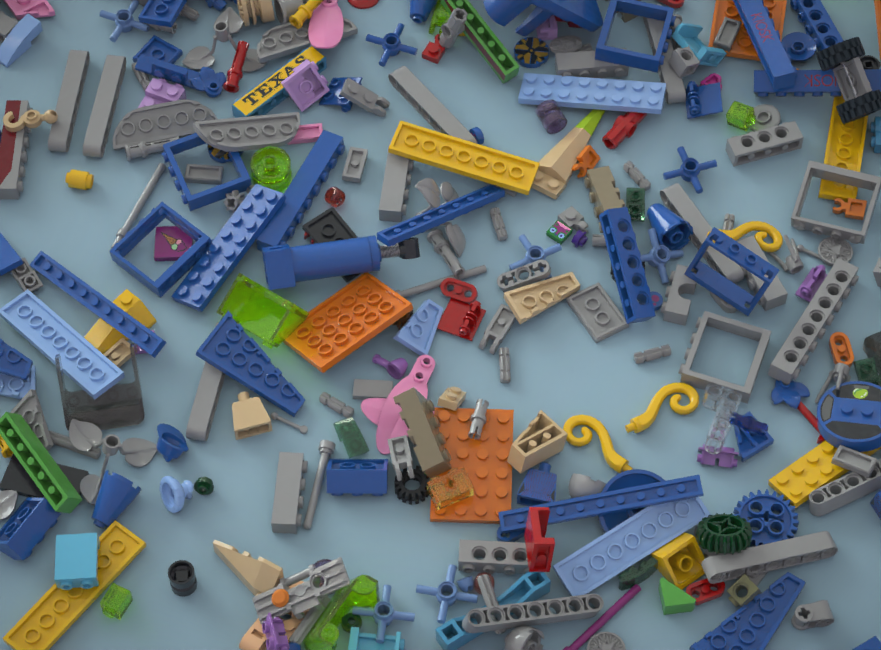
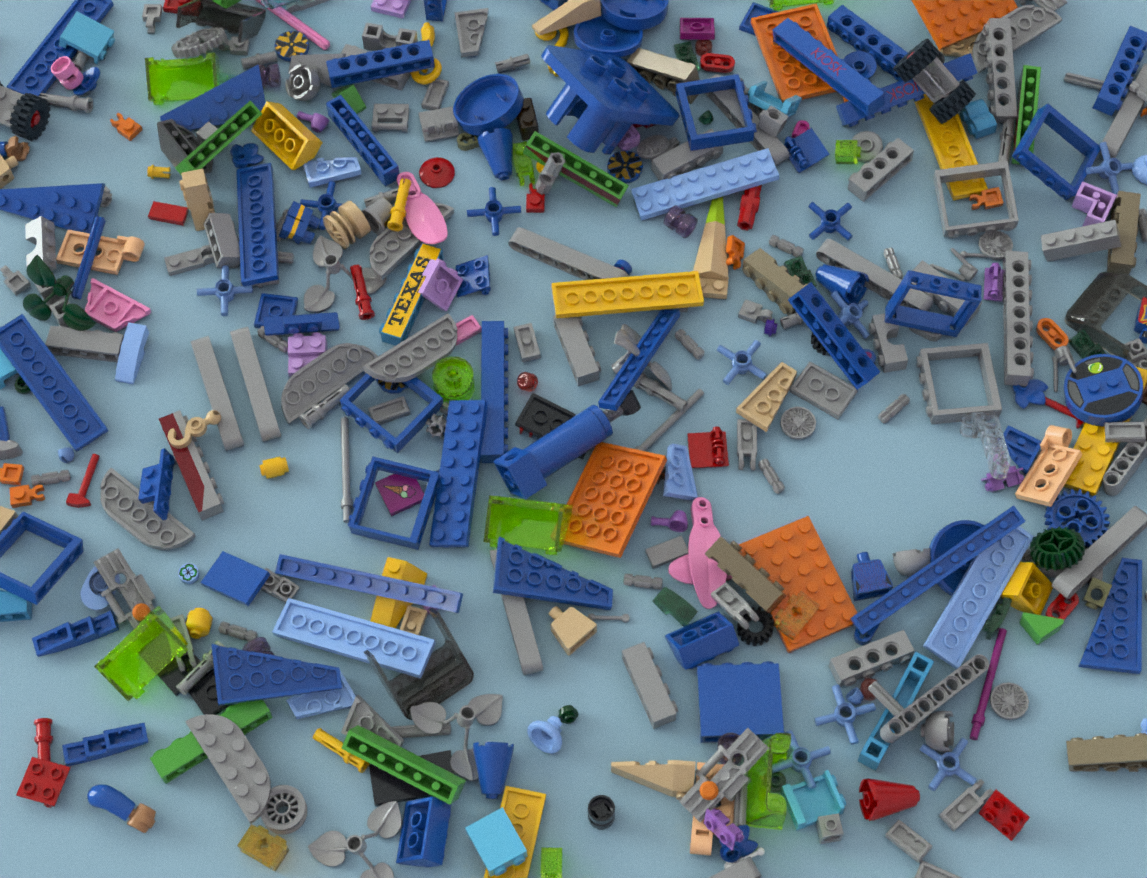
camera: 25 degrees left, 5 degrees up
(170, 442) = (513, 687): blue piece -> none
(209, 82) = (341, 316): blue plate -> none
(326, 449) = (658, 628): light grey piece -> none
(361, 536) = (739, 699): none -> blue panel
(364, 98) = (500, 274): light grey hinge -> none
(452, 398) = (746, 529): tan plate -> none
(459, 290) = (691, 421): red plate -> none
(478, 419) = (786, 539): light grey pin -> none
(526, 268) = (742, 376): light grey beam -> none
(537, 443) = (846, 537): tan wedge -> none
(538, 547) = (910, 638): red panel -> none
(556, 330) = (798, 422): none -> light grey wheel
(559, 232) = (747, 328): tile -> none
(612, 458) = (915, 521): yellow plant -> none
(630, 38) = (706, 118): none -> clear green hinge
(646, 419) = (923, 472): yellow plant -> none
(727, 34) = (792, 79): flat silver tile -> none
(748, 423) = (1019, 437): clear blue pin -> none
(764, 229) = (897, 273): yellow plant -> none
(776, 460) = (1055, 456): none -> light nougat hinge

